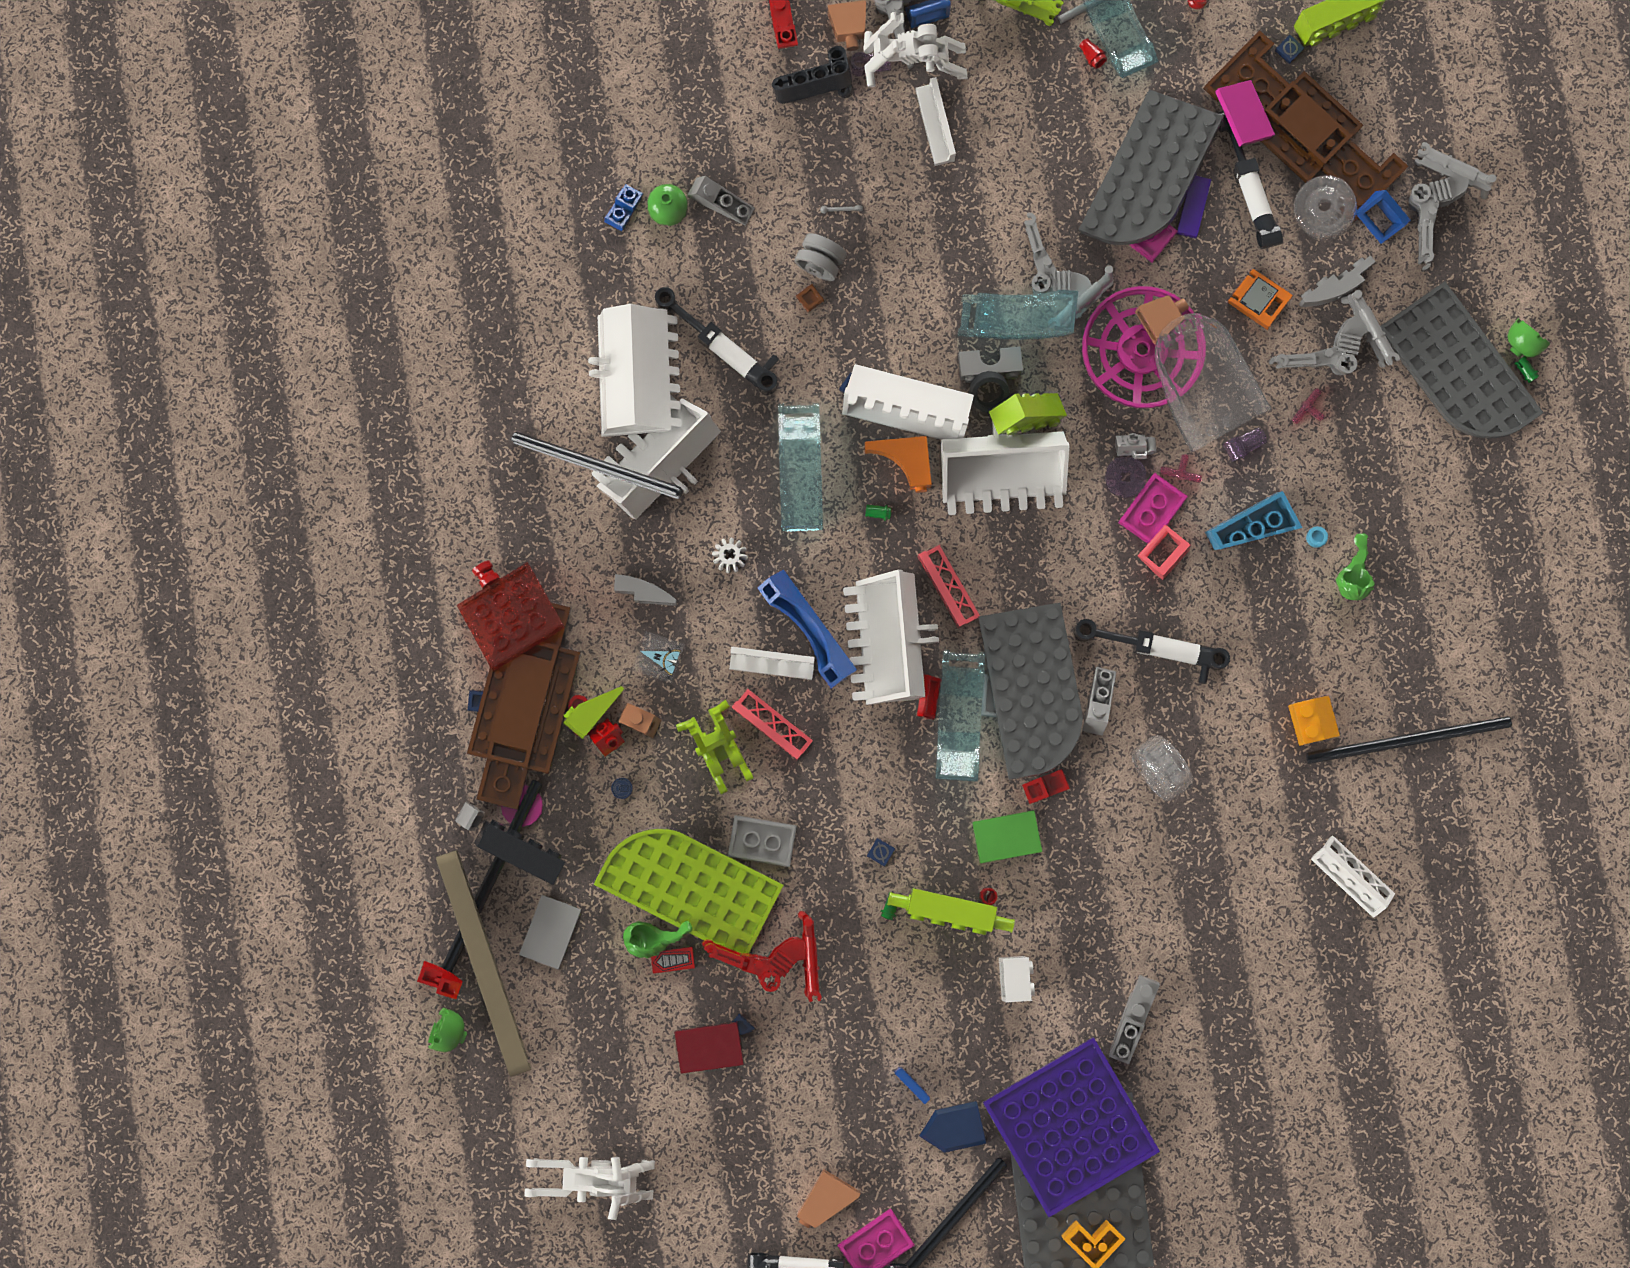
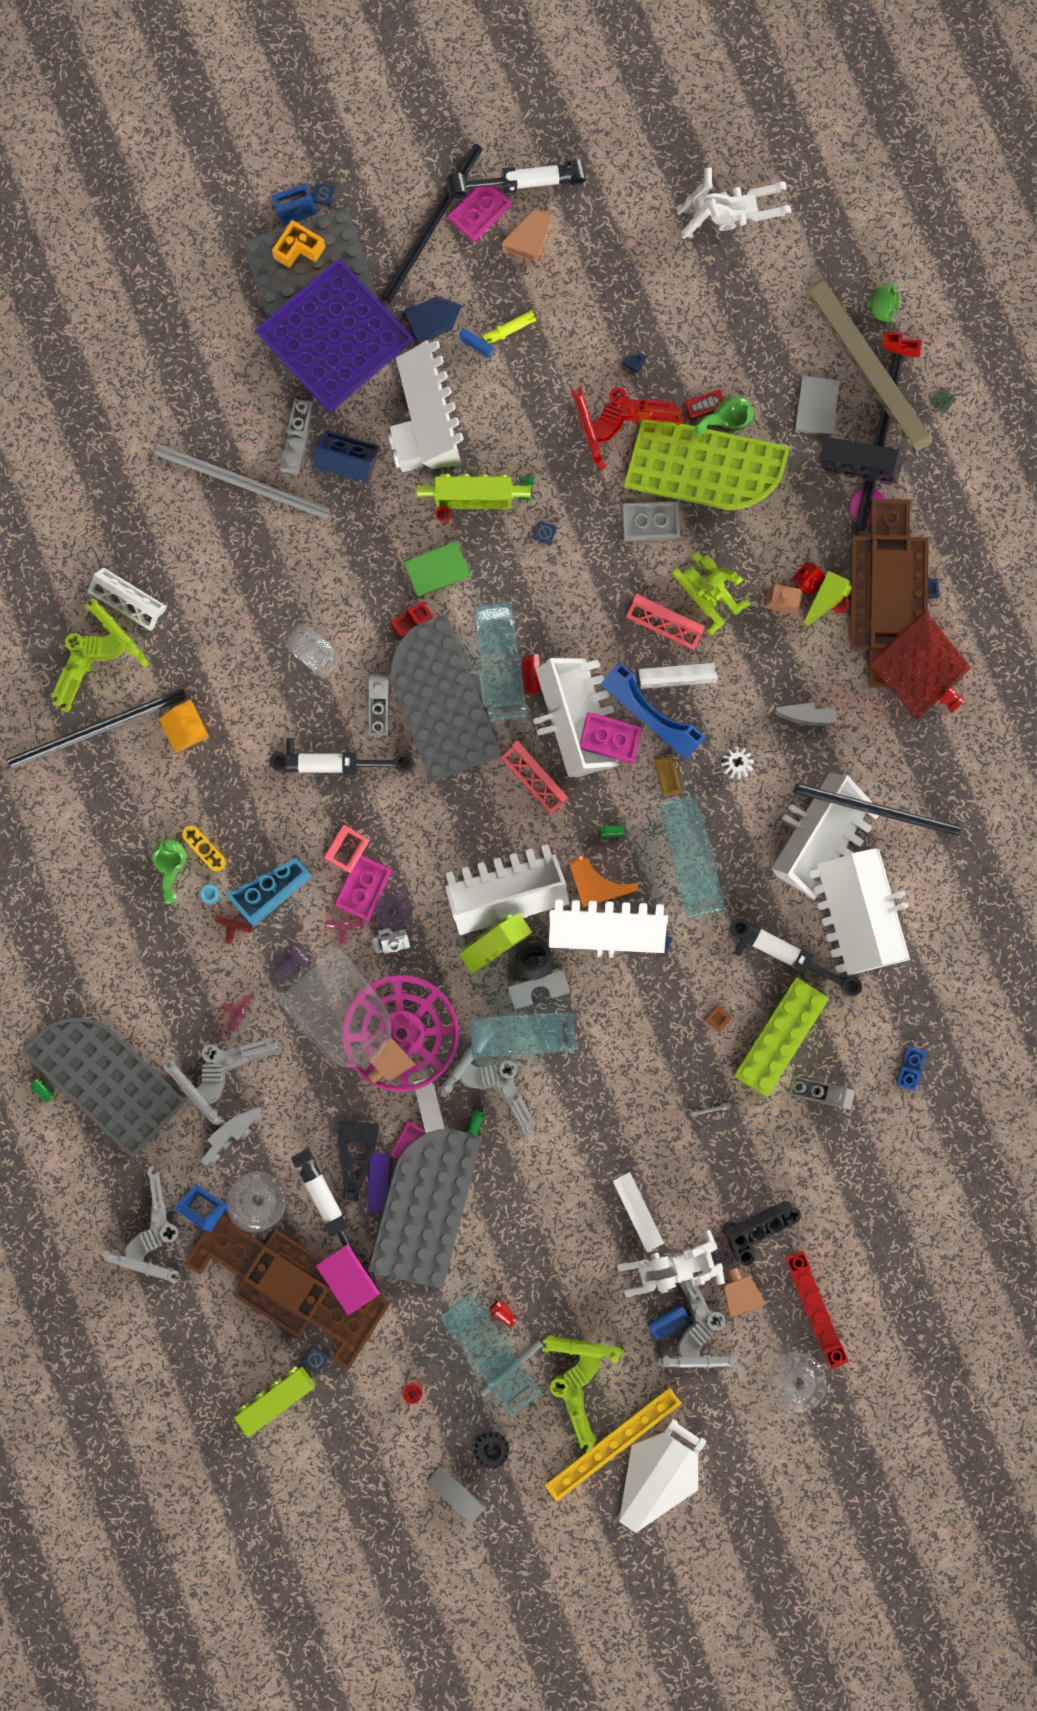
camera: 170 degrees right, 0 degrees up
(410, 907) = (943, 400): none -> clear green tile
(469, 817) = (912, 482): light grey slope -> none
(622, 788) = (784, 540): dark blue tile -> none
(658, 657) = (779, 660): clear tile -> none
(667, 204) = (871, 1079): bright green cylinder -> none
(709, 1047) = (657, 338): dark red tile -> none
(750, 263) = (781, 1037): none -> lime brick
(806, 559) = (667, 776): none -> pearl gold tile
(820, 257) = (718, 1051): light grey wheel -> none
(859, 611) = (610, 737): none -> dark pink tile
(873, 1095) = (508, 328): none -> neon yellow pin
(982, 1015) = (428, 406): none -> white piece
(1079, 250) = (475, 1122): none -> green pin
(1082, 985) = (346, 456): none -> dark blue slope
(1127, 269) = (429, 1107): none -> white sticker
(1204, 983) = (241, 481): none -> light grey axle
(1205, 260) = (357, 1132): none -> black plate
(1257, 295) = (304, 1106): orange container -> none
(1297, 498) = (233, 925): none -> clear red piece
(1323, 586) = (217, 855): none -> yellow beam
(1409, 824) = (92, 648): none -> lime piece
(1526, 340) = (47, 1116): bright green cylinder -> none

